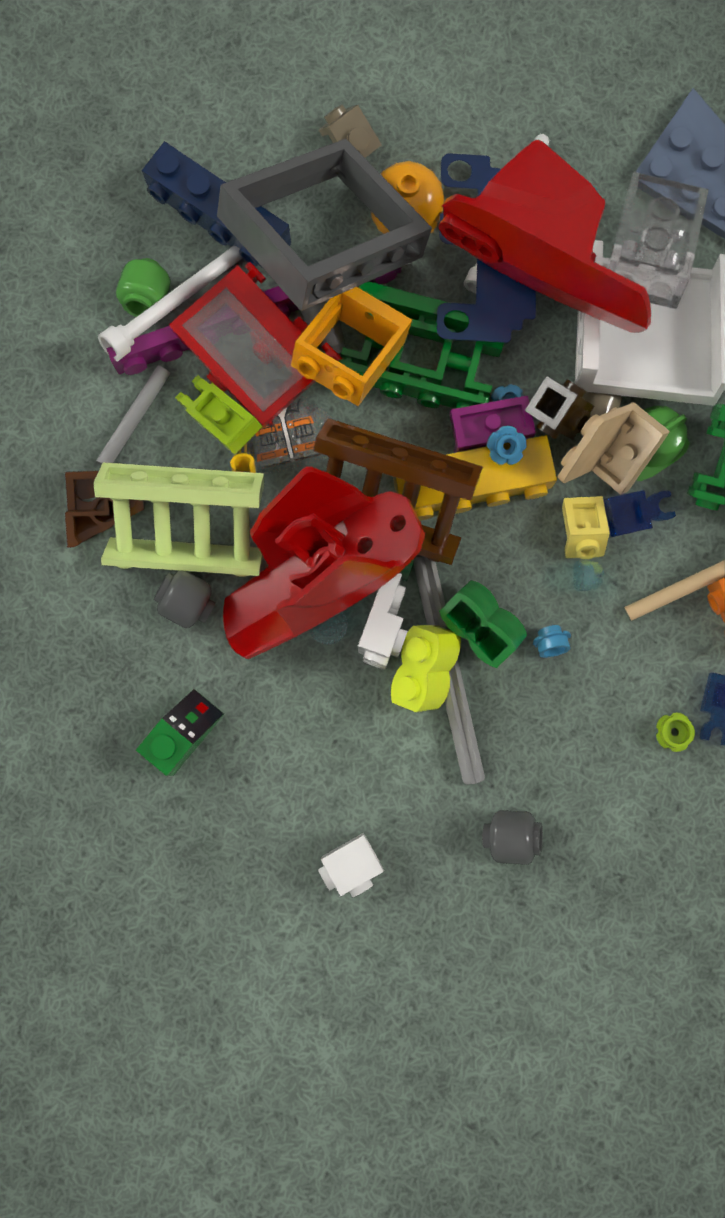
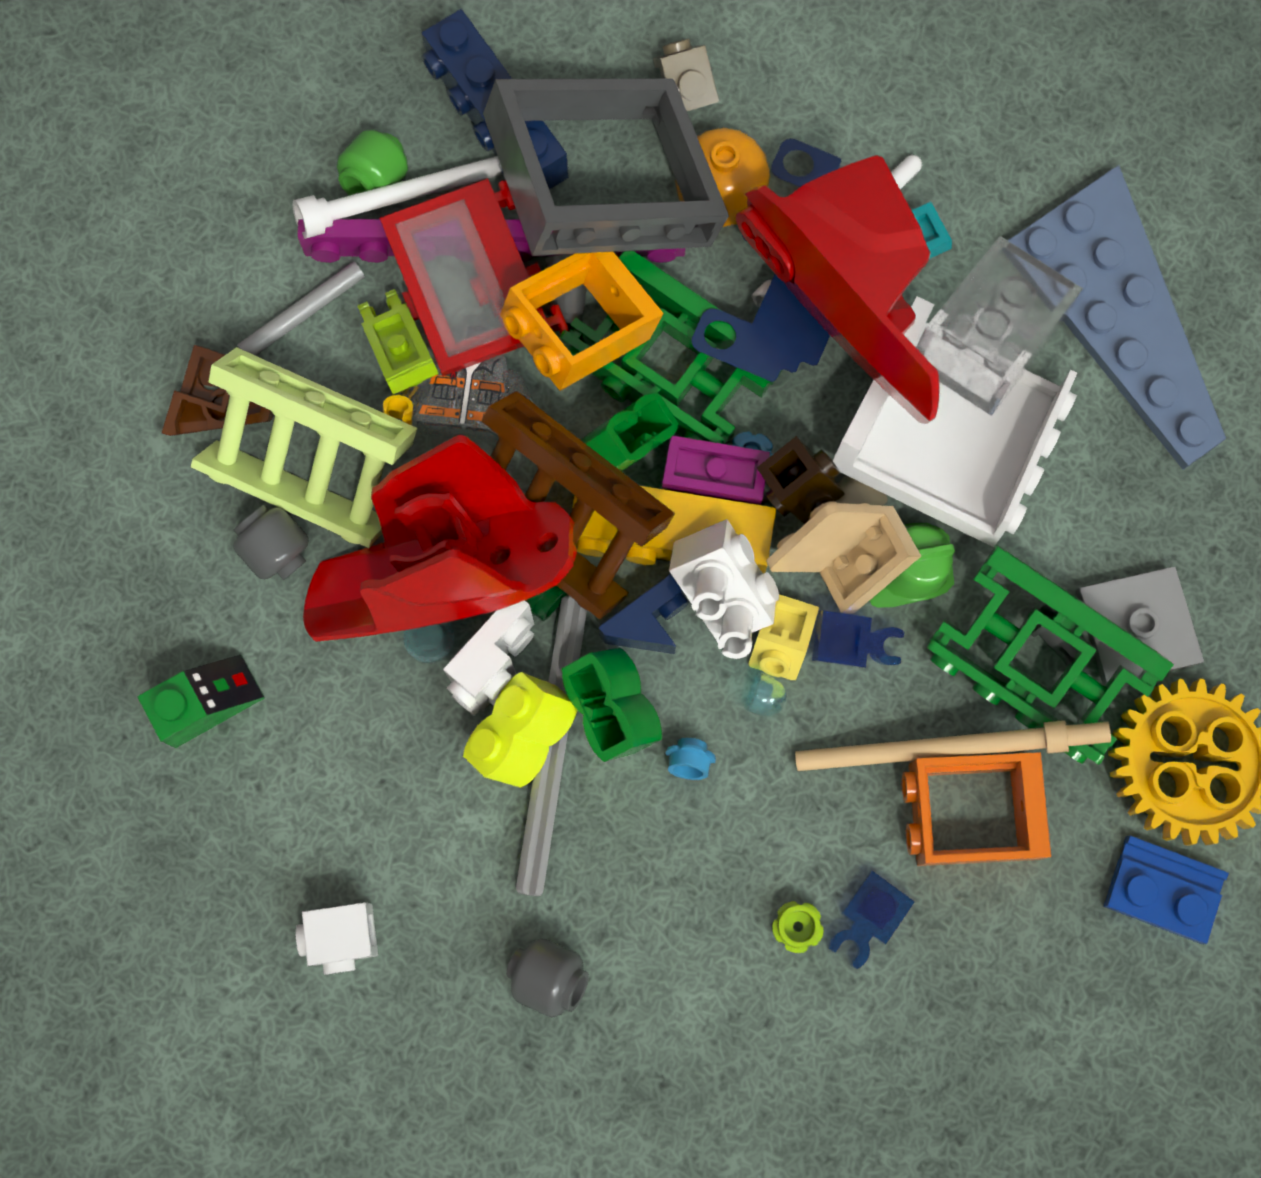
camera: 20 degrees right, 5 degrees down
(423, 417) = (633, 431): none -> green brick
(479, 558) = (637, 623): none -> dark blue slope
(497, 440) = (724, 488): dark azure plate -> none
(534, 506) = (725, 585): none -> white brick

